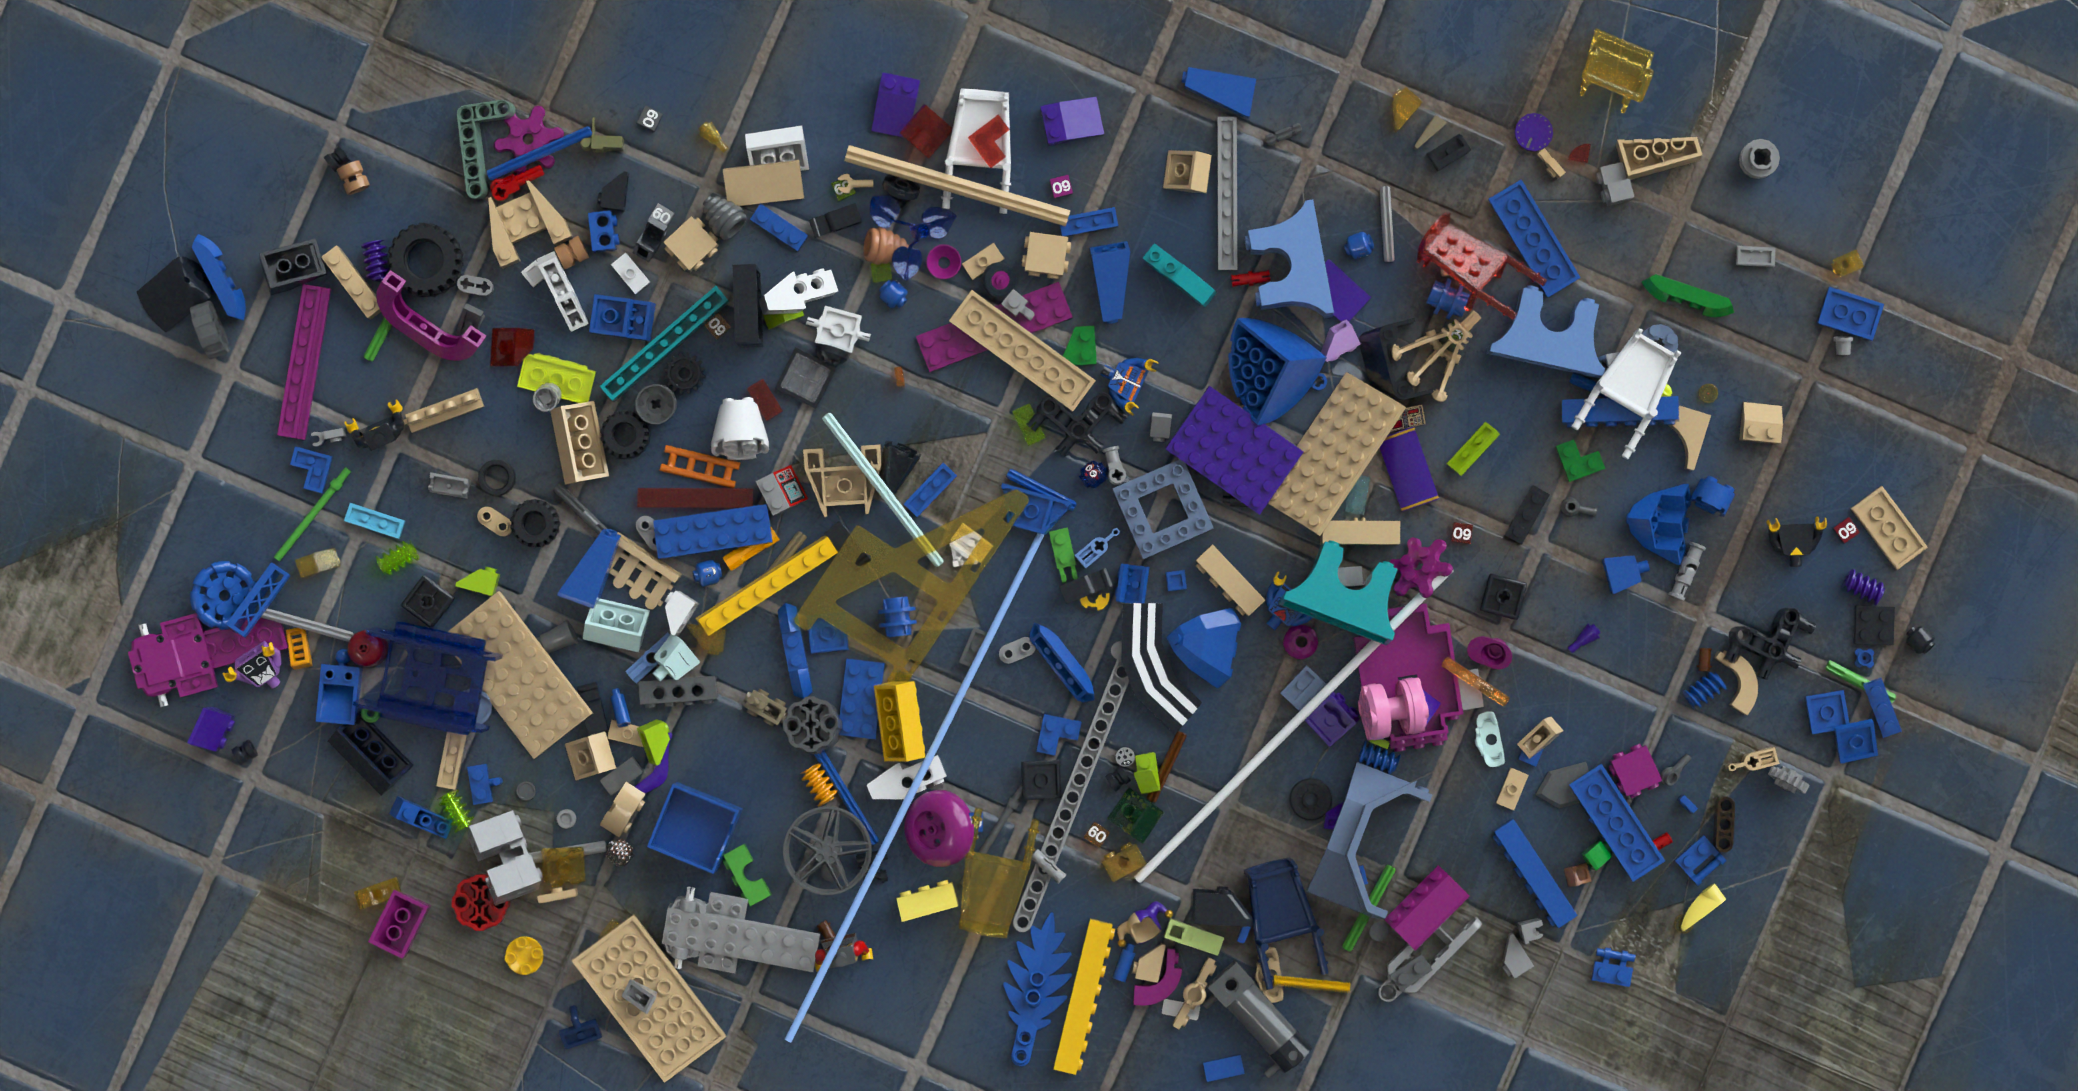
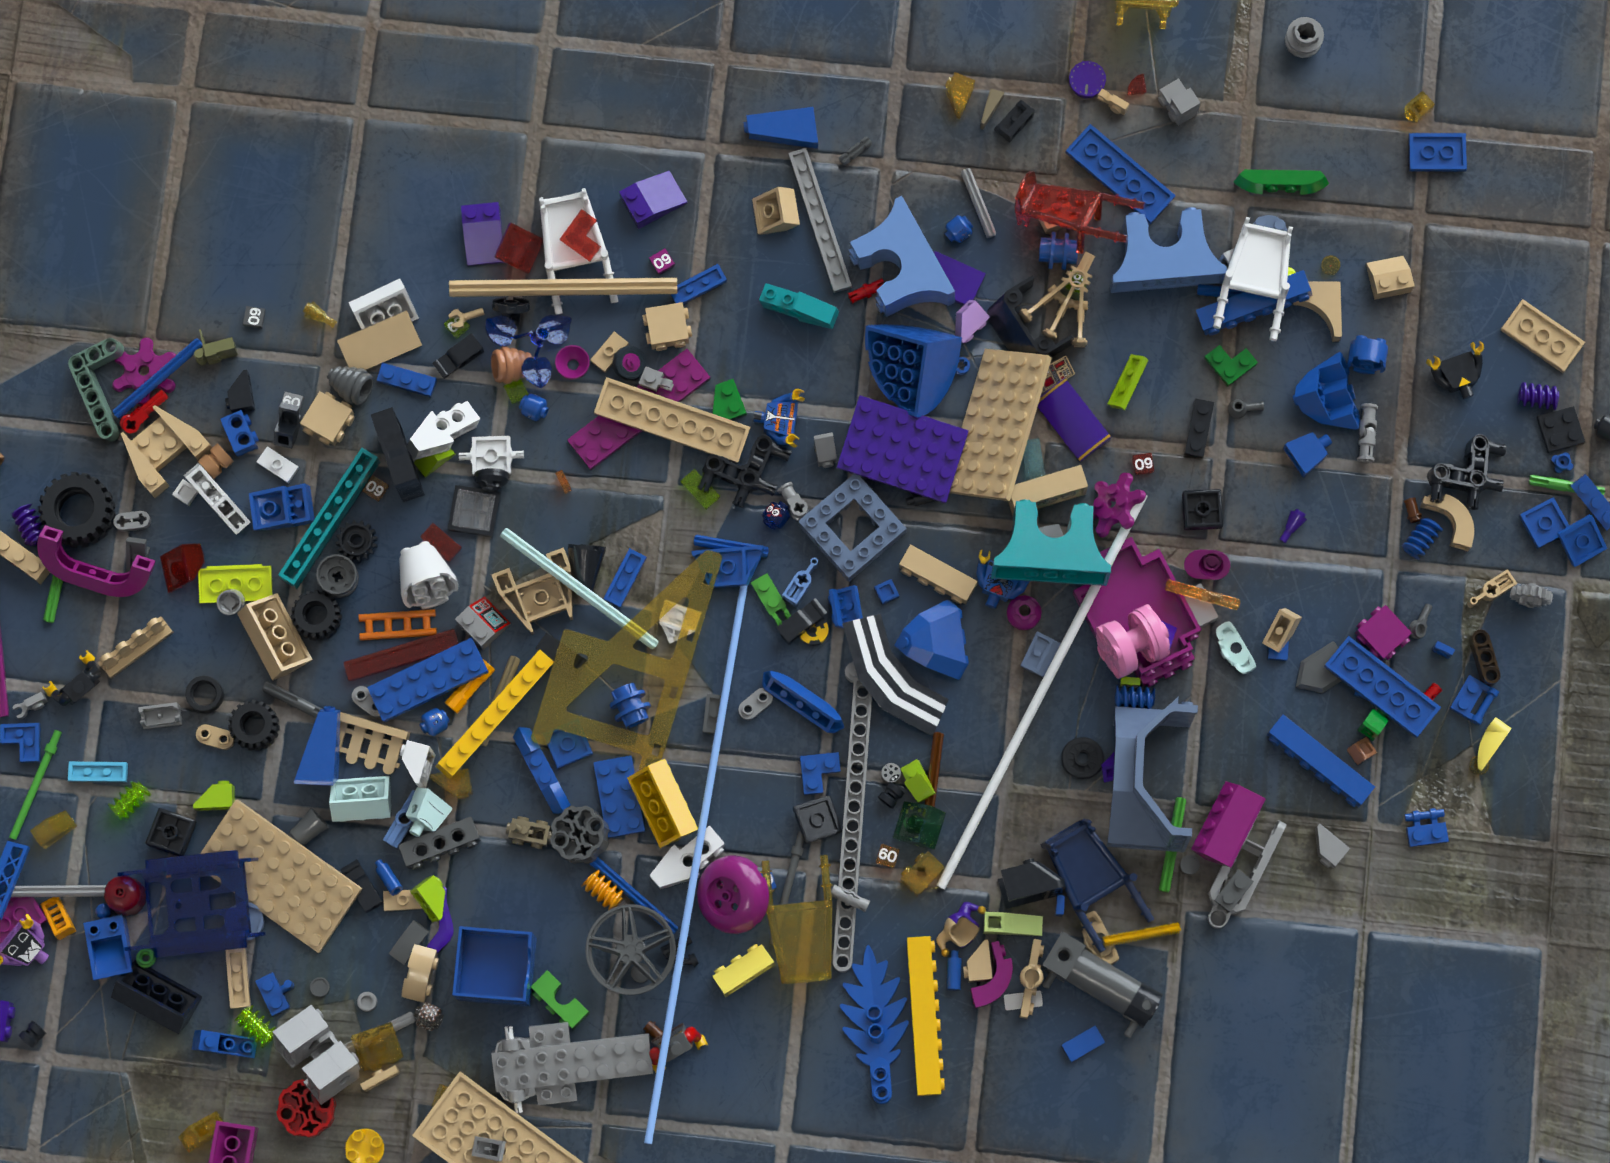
camera: 15 degrees left, 10 degrees down
(590, 755) = (372, 932): tan slope -> none
(1110, 272) = (734, 328): blue slope -> none
(1332, 718) = (1078, 674): dark purple plate -> none
(1512, 789) = (1271, 688): tan plate -> none
(1527, 930) = (1332, 817): light grey hinge -> none
(1656, 155) = (1209, 63): tan wedge -> none
(1755, 256) = (1331, 127): light grey plate -> none
(1843, 345) = (1440, 182): light grey piece -> none
(1846, 530) = (1503, 350): dark red tile -> none

